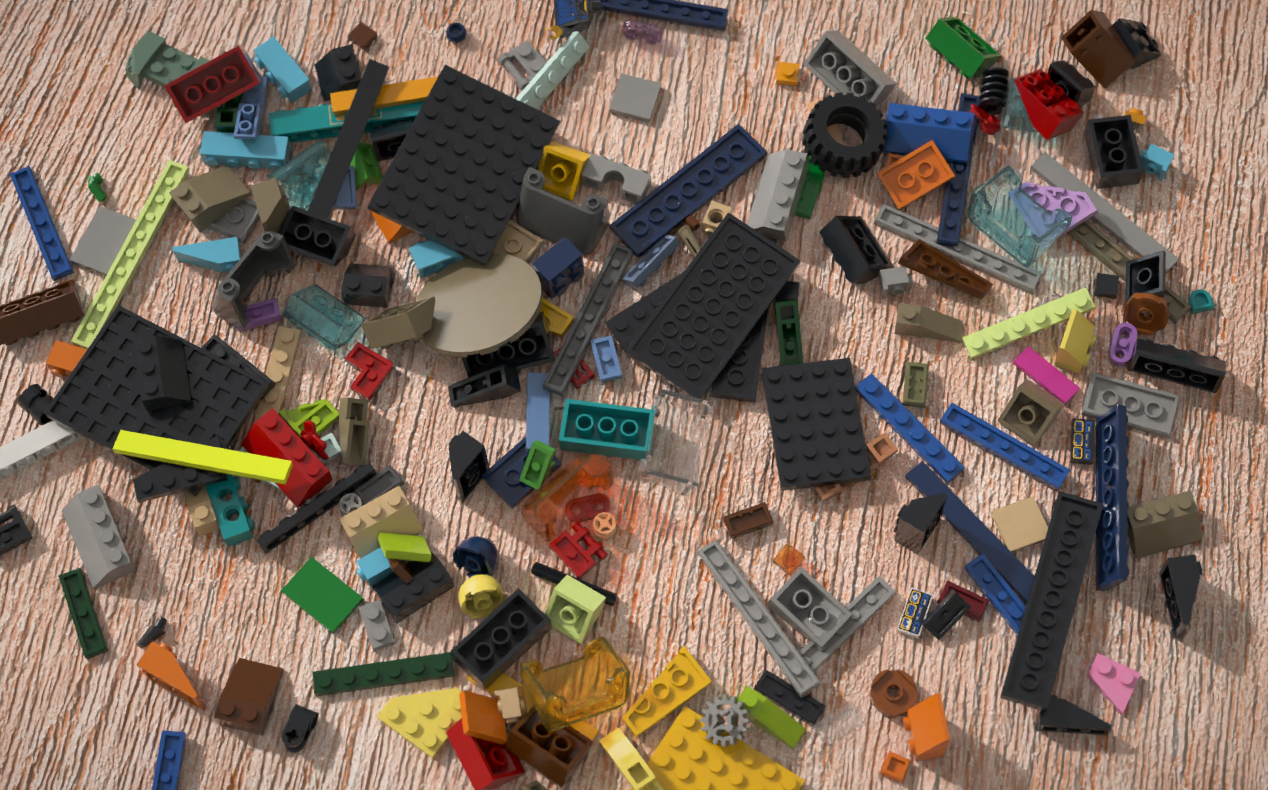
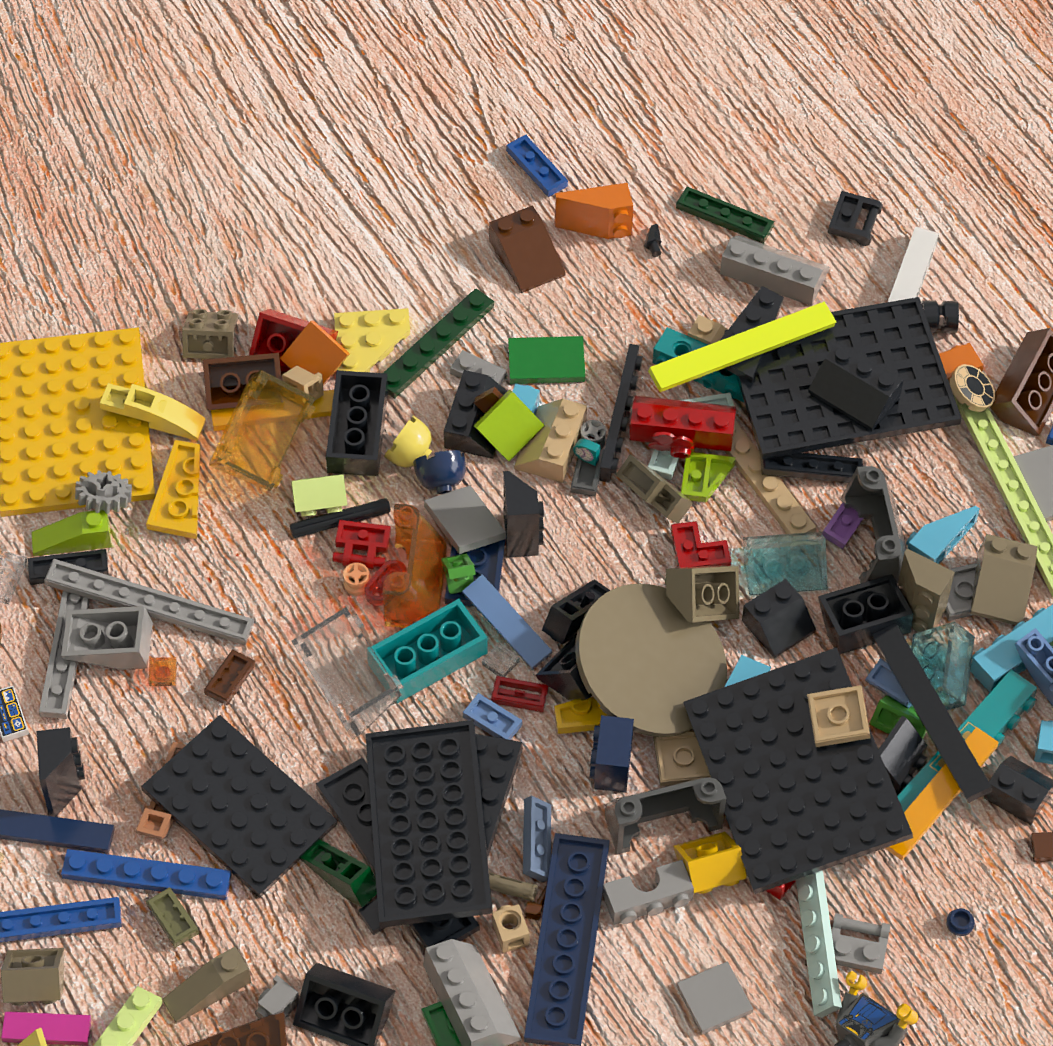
camera: 135 degrees right, 10 degrees down
(83, 325) = (972, 387): none -> tile
(300, 724) = (462, 255): black piece -> none
(369, 487) = (587, 451): none -> teal tile
(413, 159) = (838, 716): none -> tan tile
(496, 507) = (464, 519): none -> light grey tile
(588, 320) = (543, 741): dark grey tile -> none

